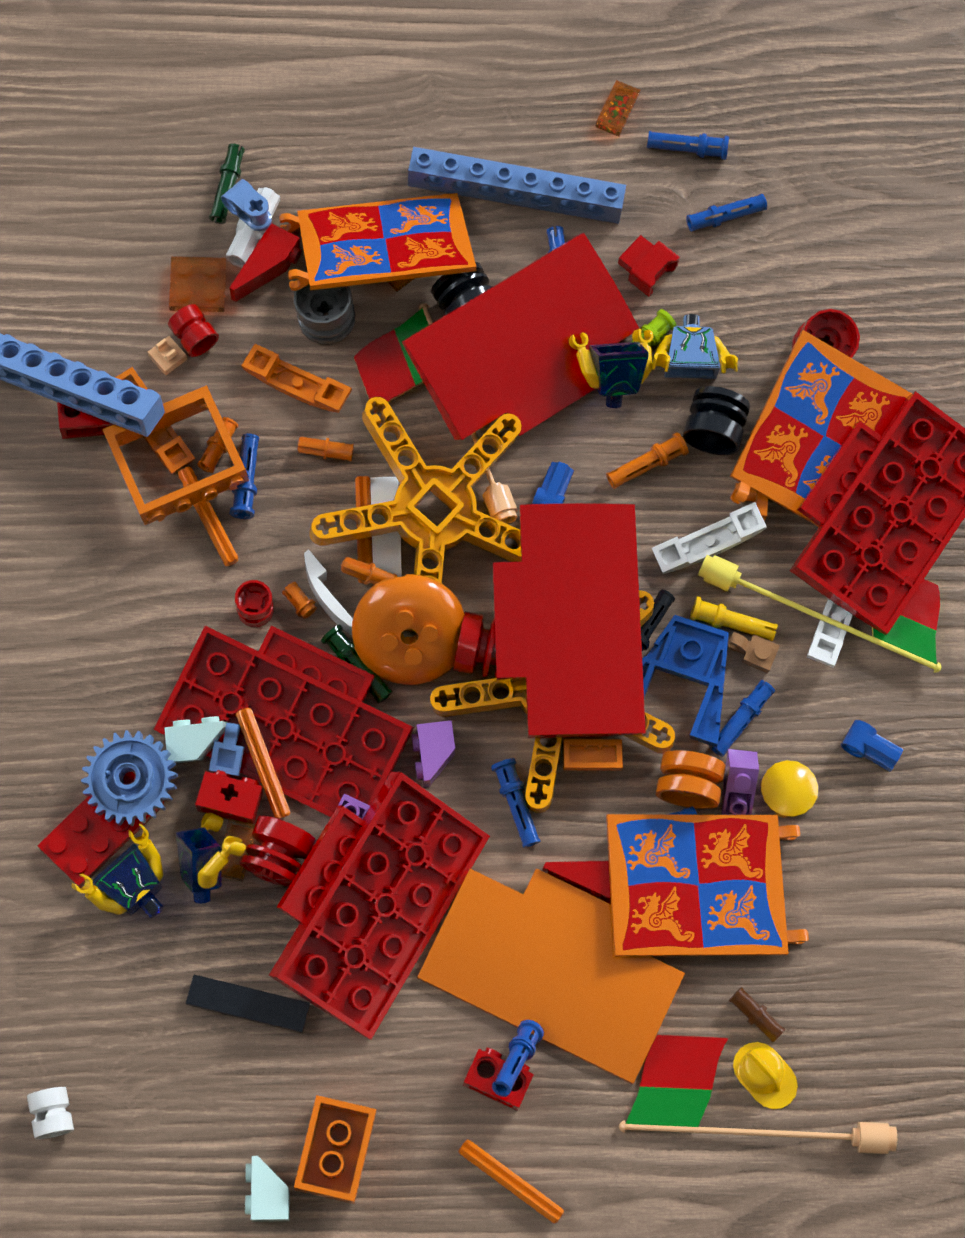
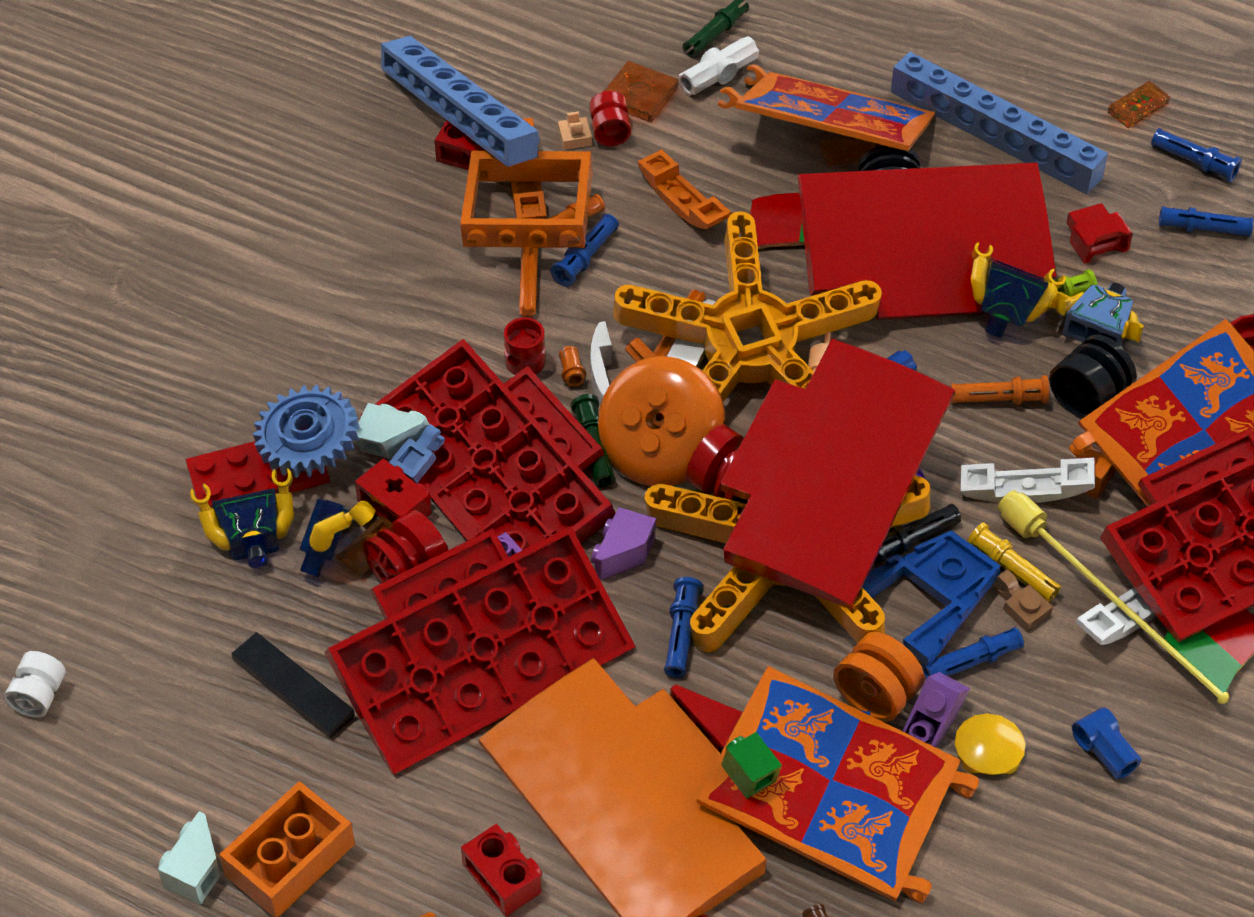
camera: 35 degrees right, 20 degrees down
(248, 205) = (721, 38): medium blue piece -> none
(263, 763) = (446, 476): orange axle -> none
(267, 261) = (702, 96): red slope -> none
(310, 311) = (744, 145): dark grey wheel -> none
(325, 448) = (678, 258): orange axle -> none
(521, 1049) = (541, 846): blue pin -> none
(592, 754) = (786, 612): orange tile -> none
(642, 909) = (750, 764): none -> green brick

